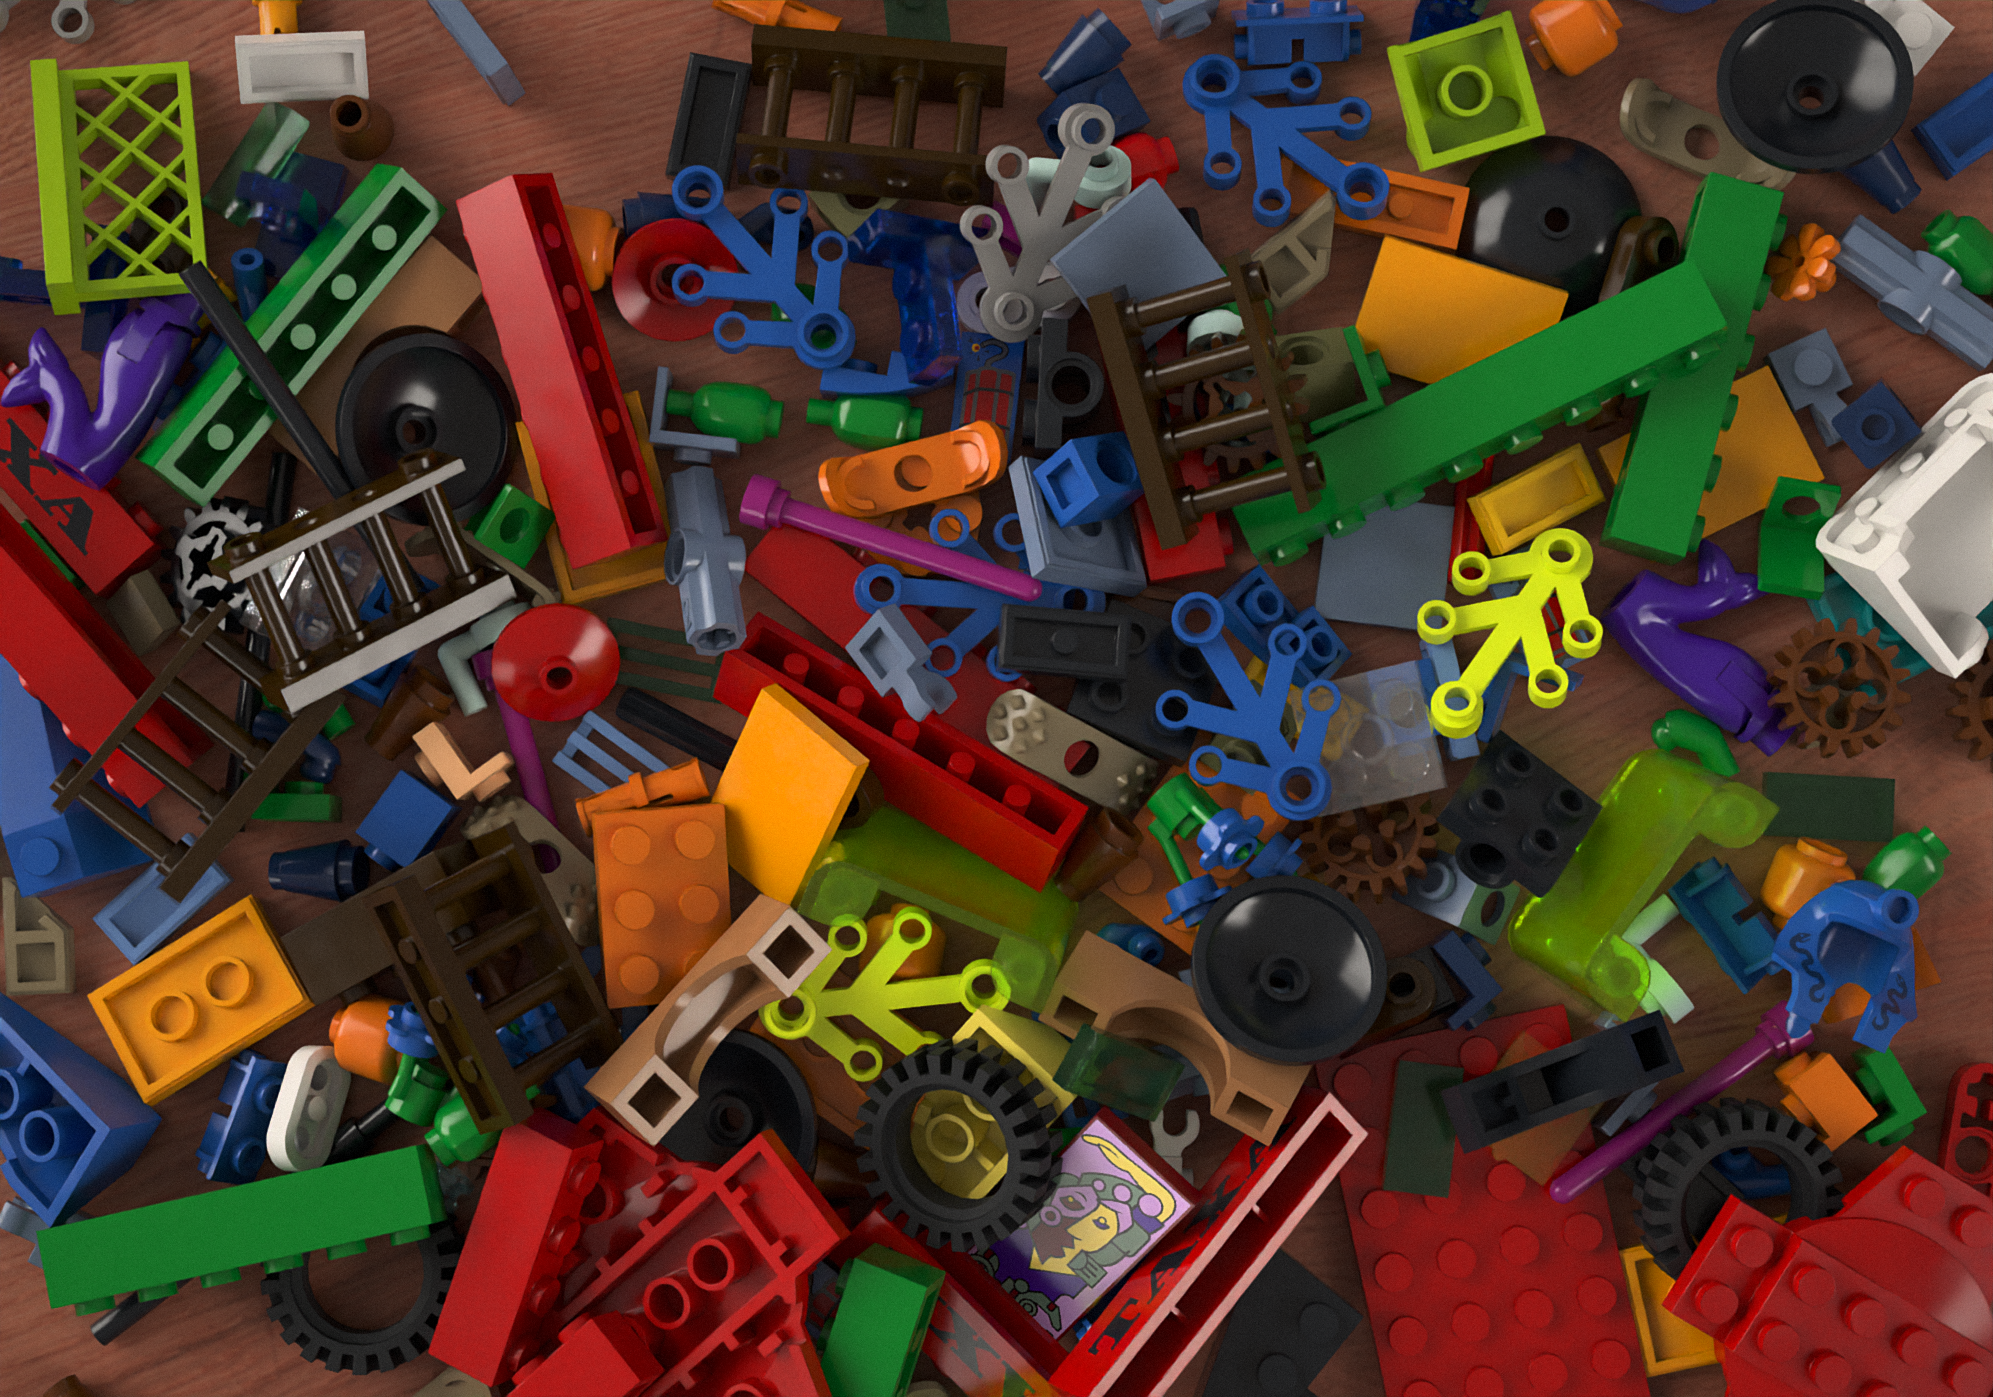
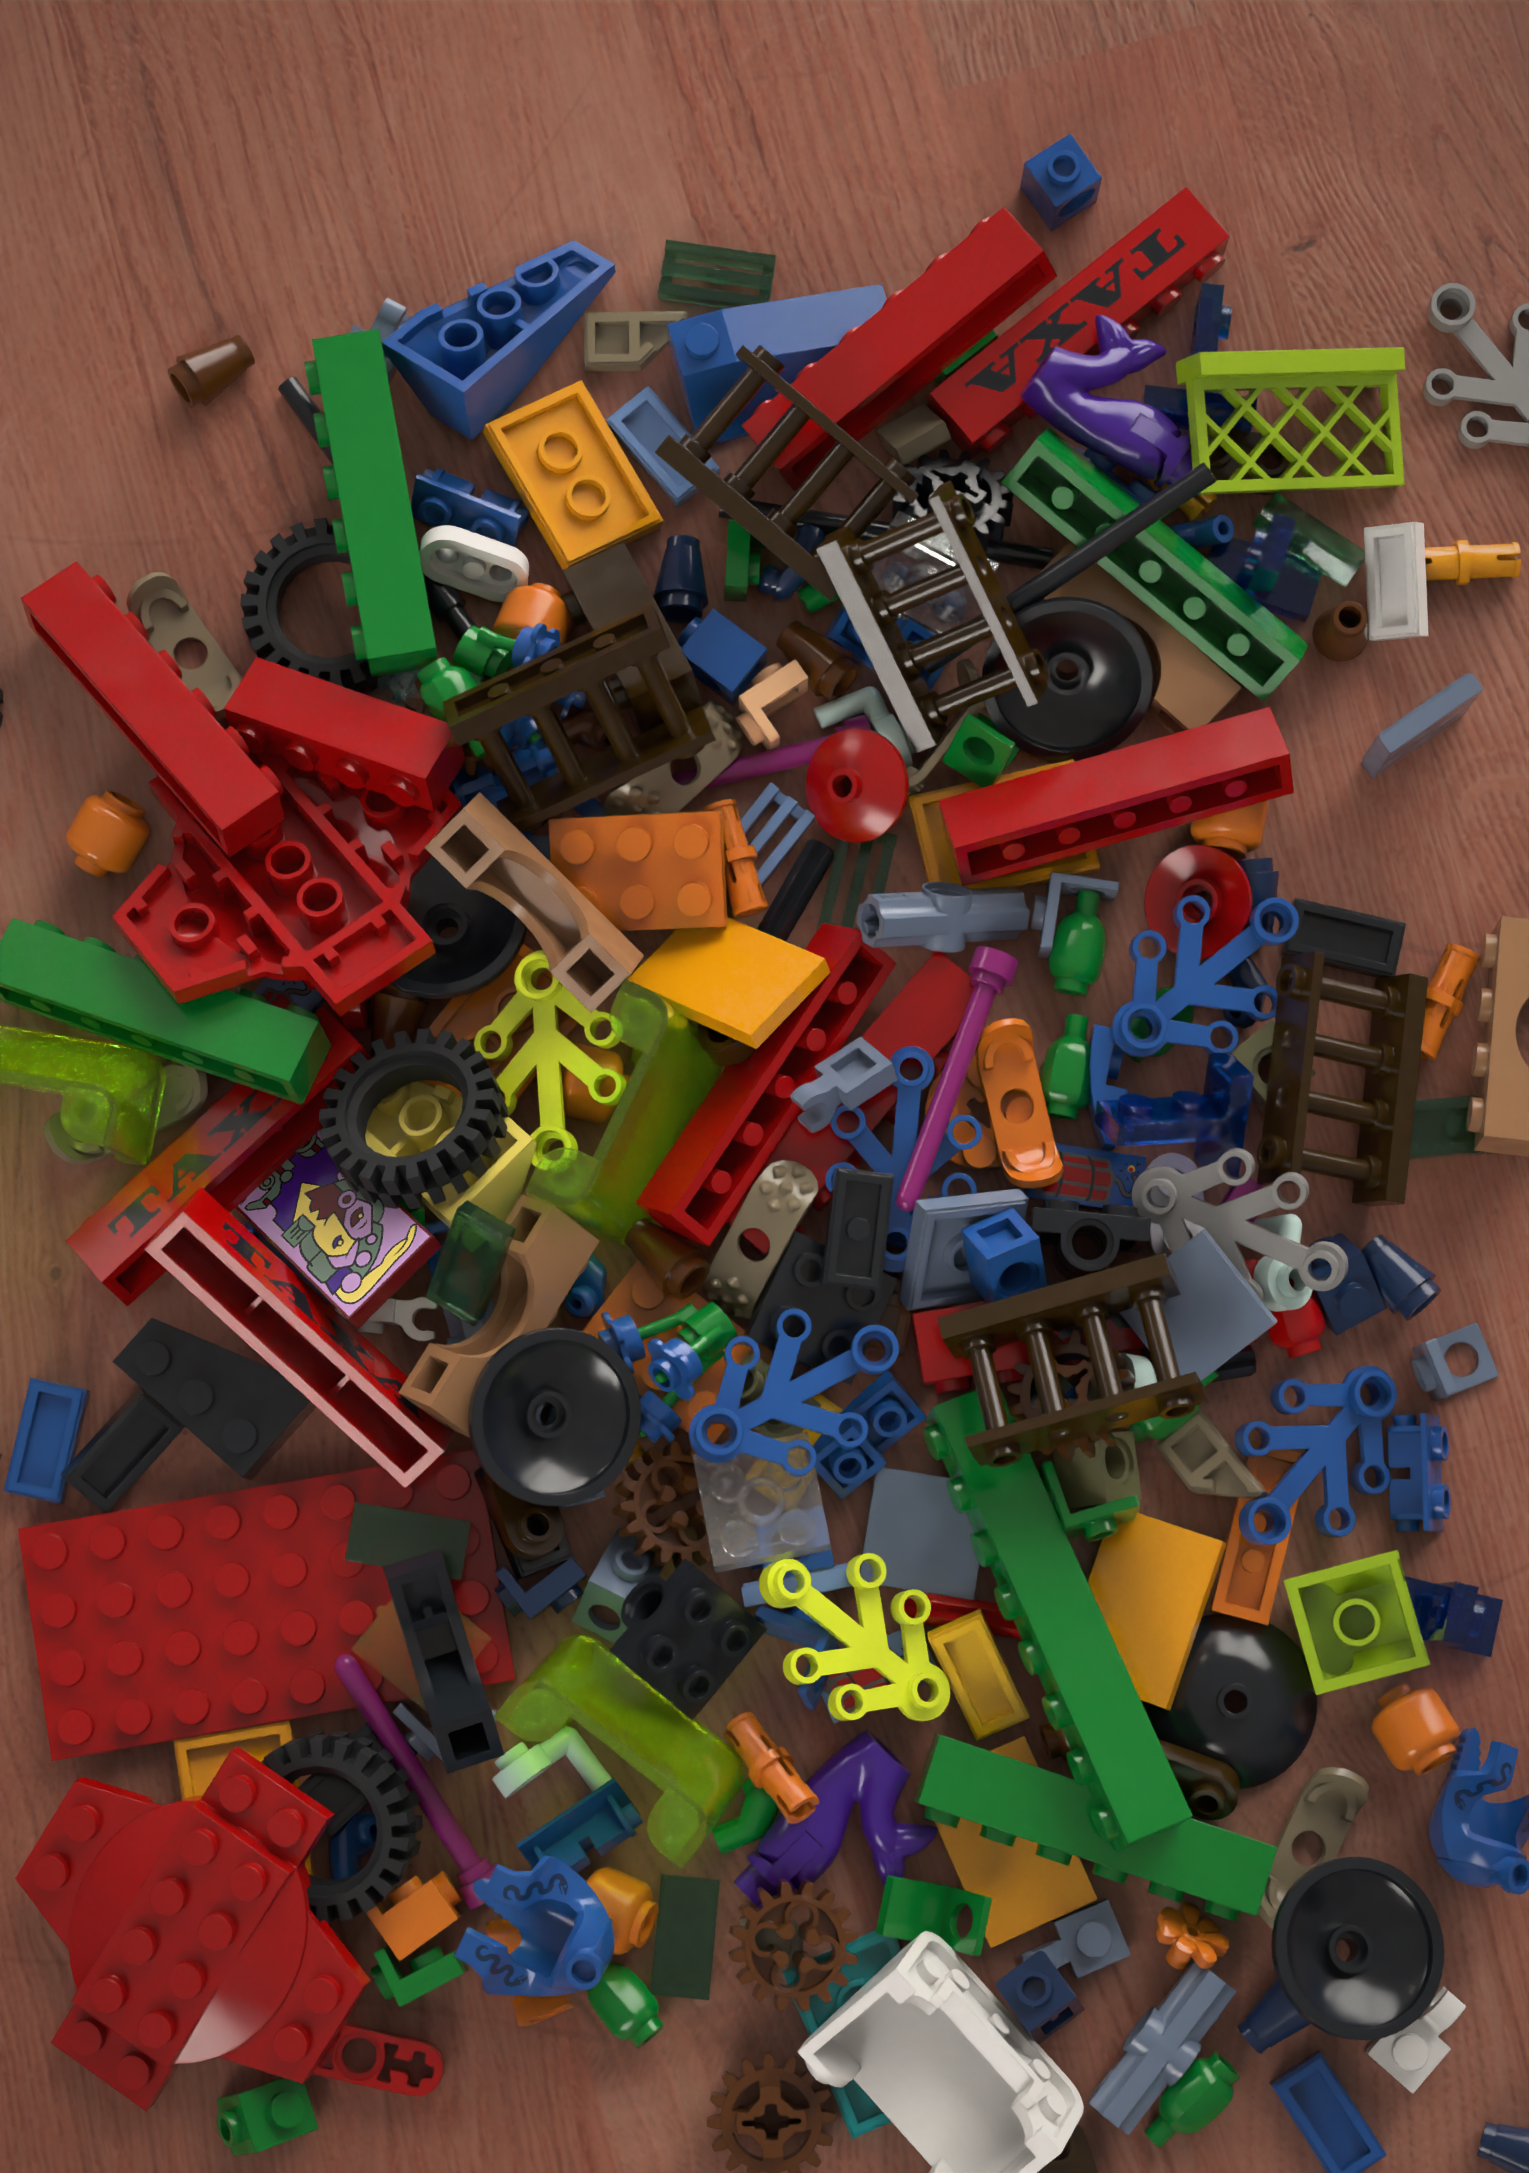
camera: 90 degrees right, 5 degrees down
(1649, 719) = (771, 1767): none -> orange pin

